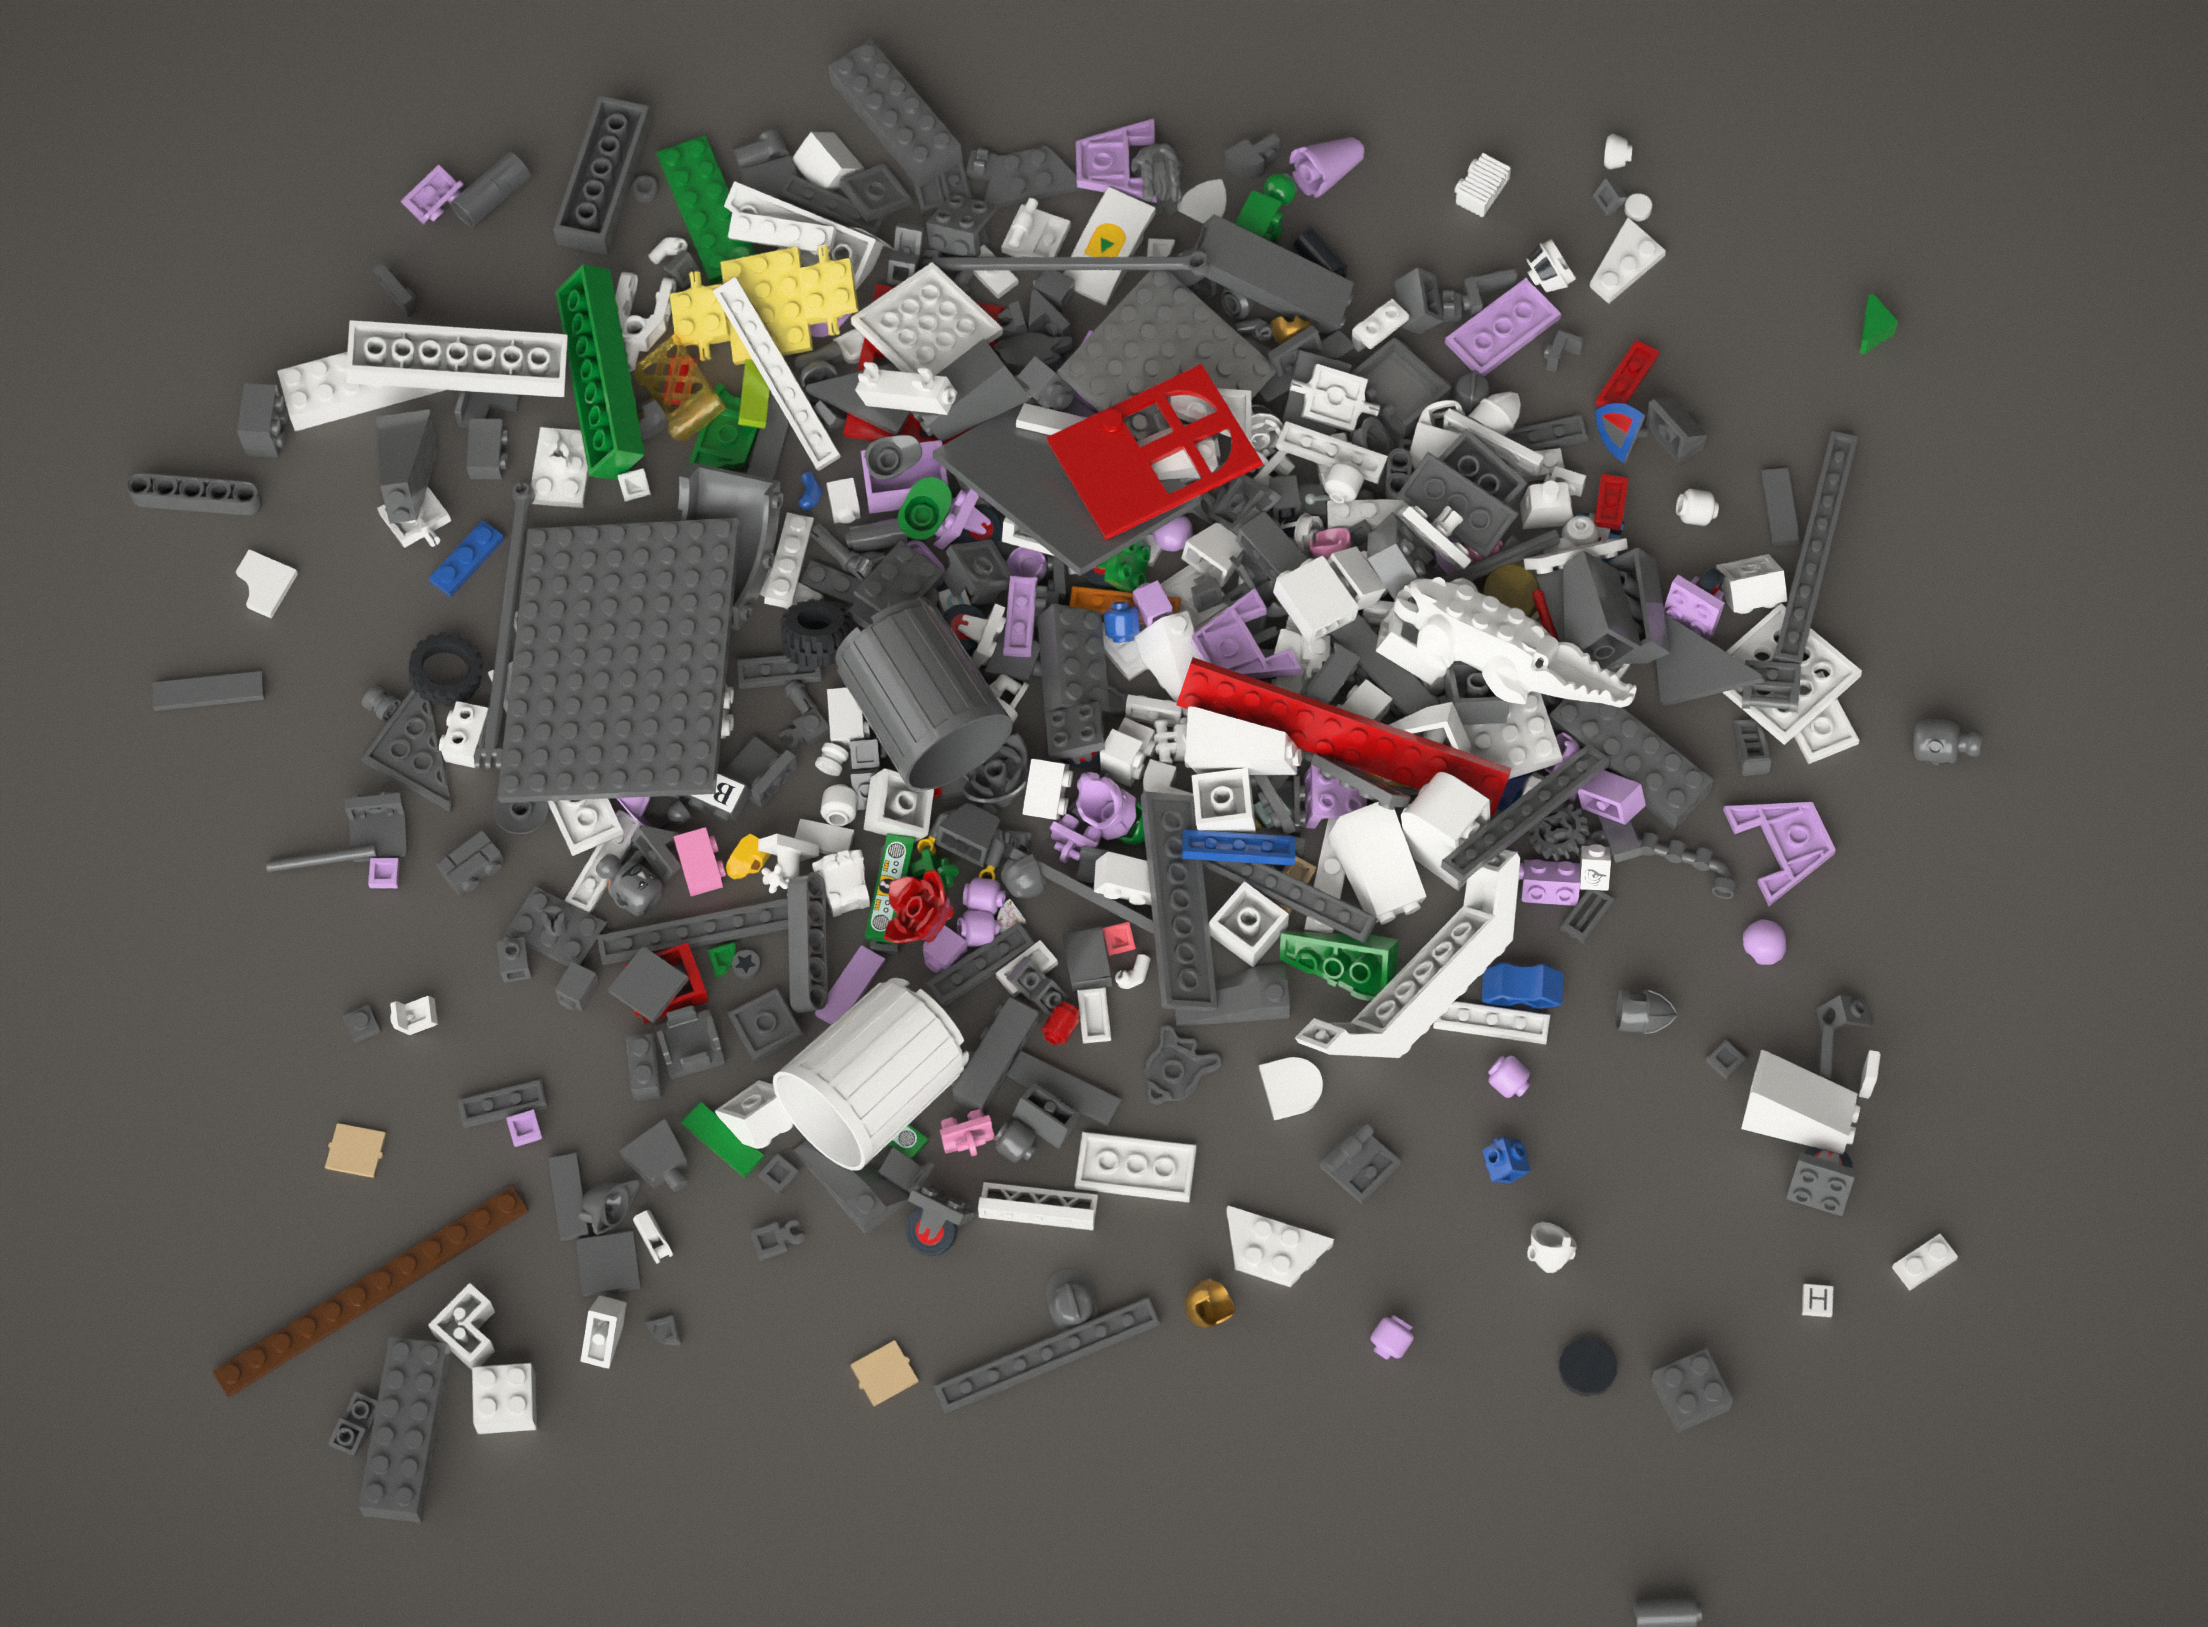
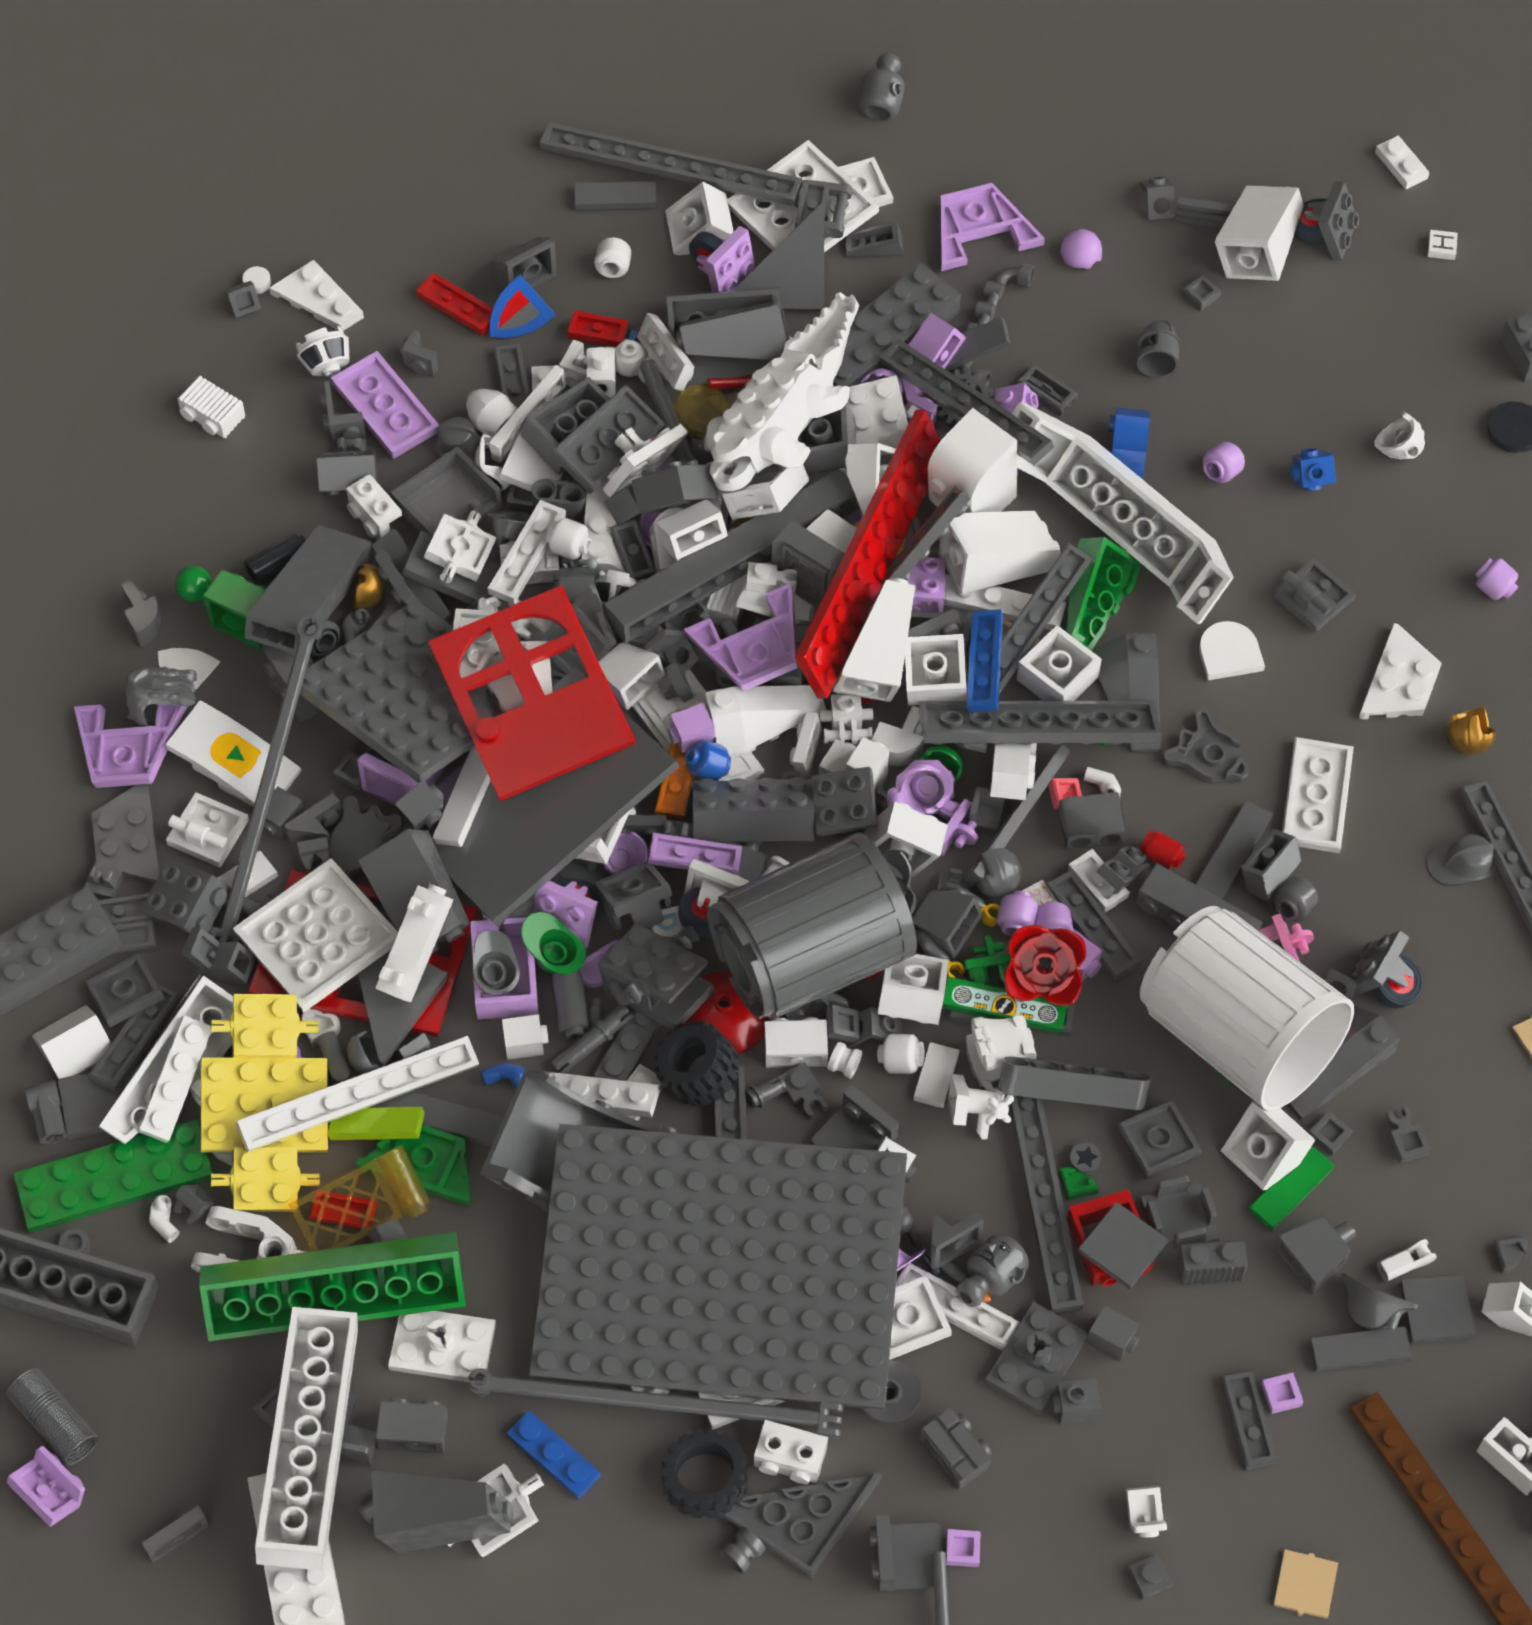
camera: 90 degrees left, 5 degrees down
(634, 485) = (477, 1261): white tile -> none
(698, 861) = (967, 1194): bright pink brick -> none
(746, 858) = (960, 1150): yellow rock -> none
(851, 984) = (1109, 1050): lavender tile -> none
(1037, 1212) = (1374, 884): white fence -> none
(1094, 1015) = (1141, 821): white tile -> none
(1160, 247) = (242, 713): white tile -> none
(1315, 598) = (718, 558): white brick -> none
(1324, 164) = (166, 543): lavender cone -> none
(1329, 542) = (638, 556): bright pink hair -> none
(1495, 1022) = (1163, 460): white tile -> none
(1595, 867) = (1005, 368): white brick -> none
(1617, 152) = (191, 289): white cone -> none
(1869, 1074) = (1227, 174): white tile -> none
(1877, 324) = (423, 98): green slope -> none

